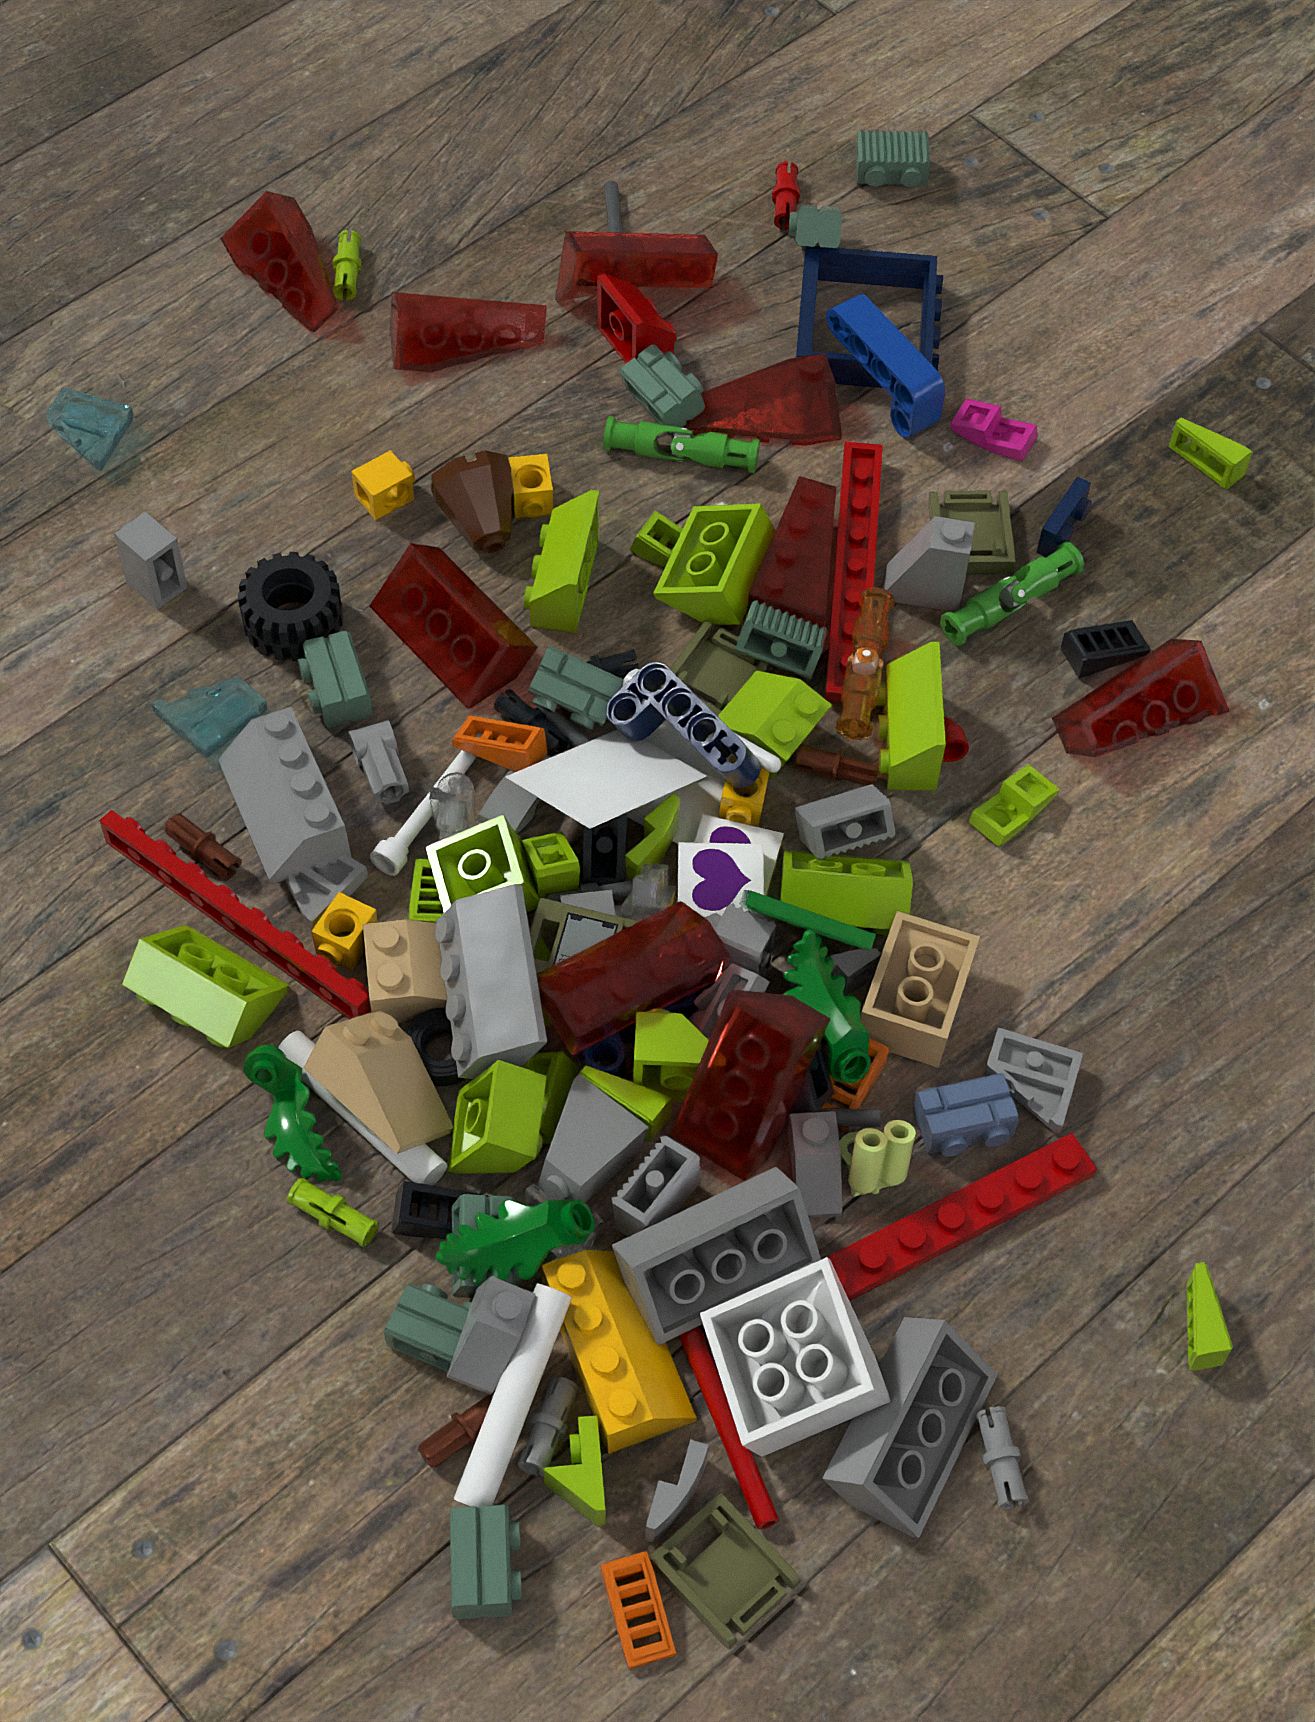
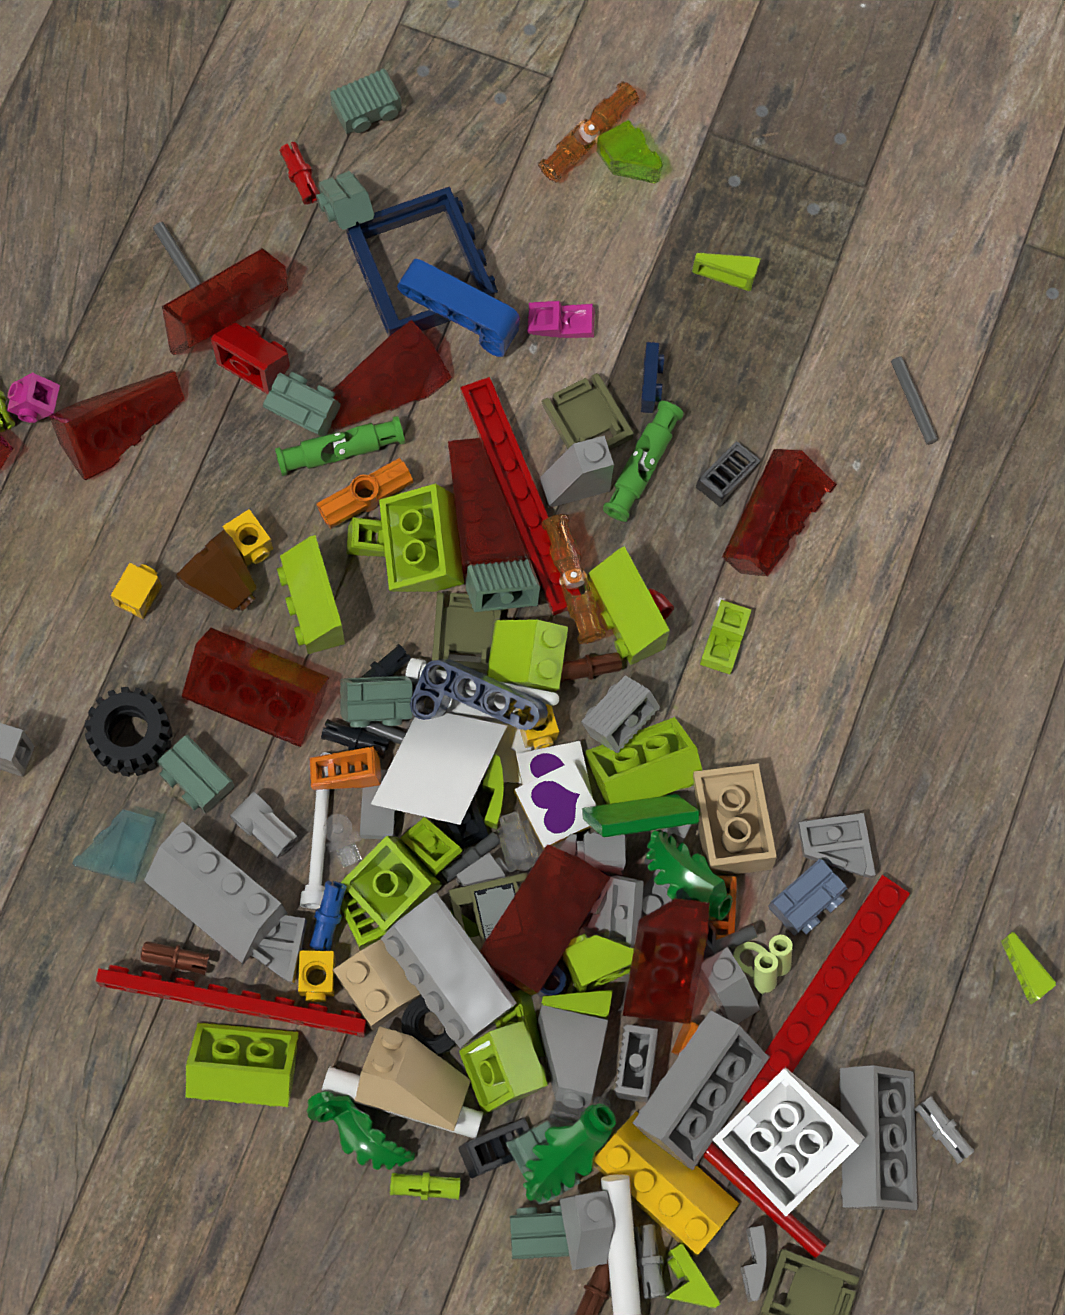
camera: 30 degrees left, 15 degrees up
(386, 271) = (32, 398): none -> dark pink brick
(394, 874) = (328, 916): none -> blue pin
(679, 494) = (381, 482): none -> orange piece
(1135, 269) = (603, 118): none -> clear orange piece
(1153, 308) = (628, 155): none -> clear neon green slope

